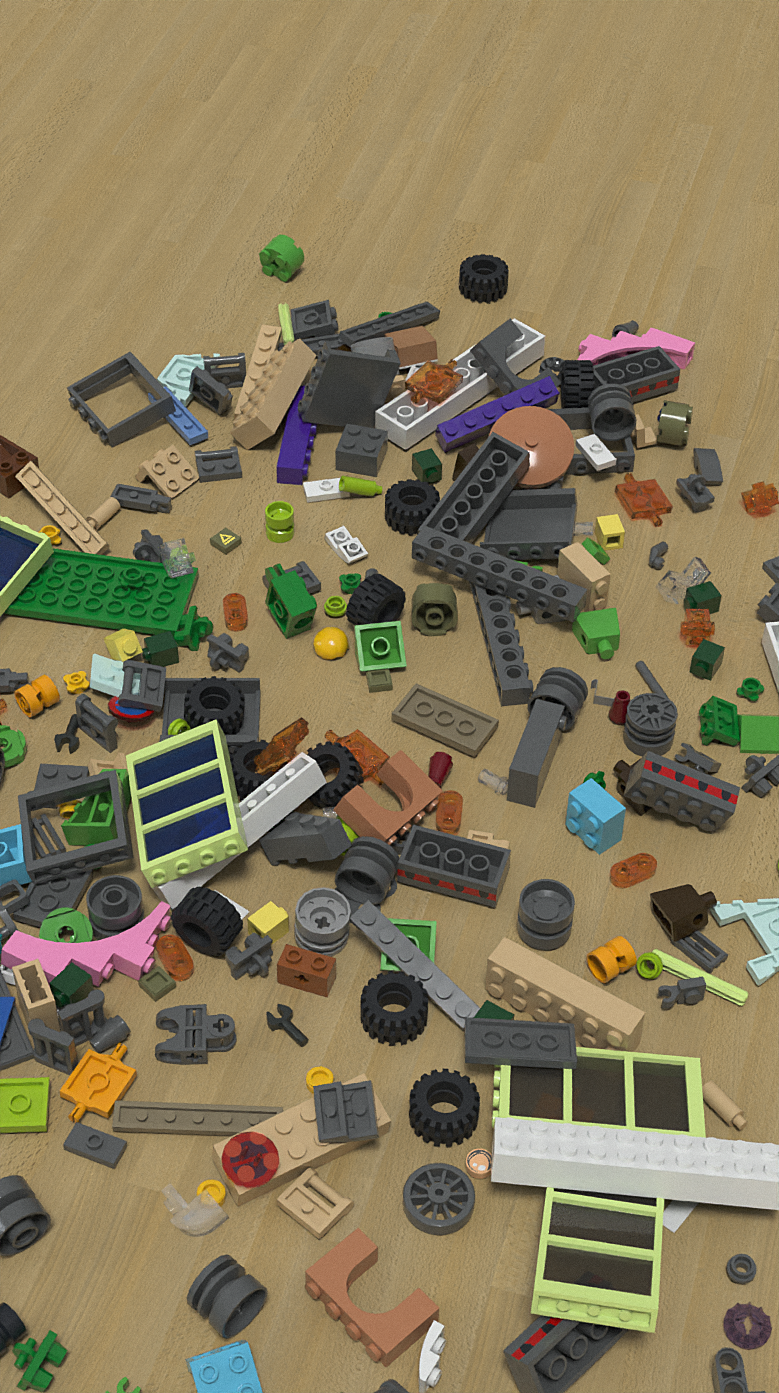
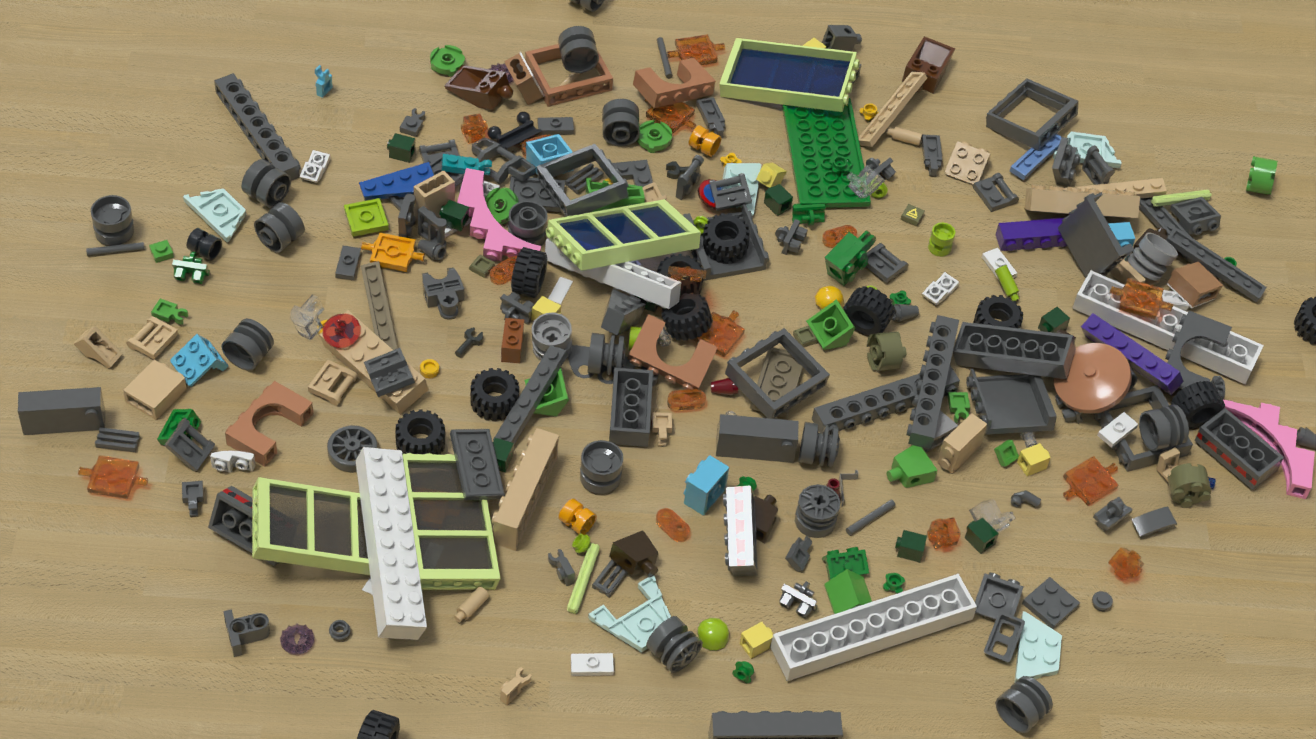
camera: 70 degrees right, 5 degrees up
(361, 450) = (1051, 276): dark grey brick -> none
(492, 729) = (756, 394): none -> dark grey window

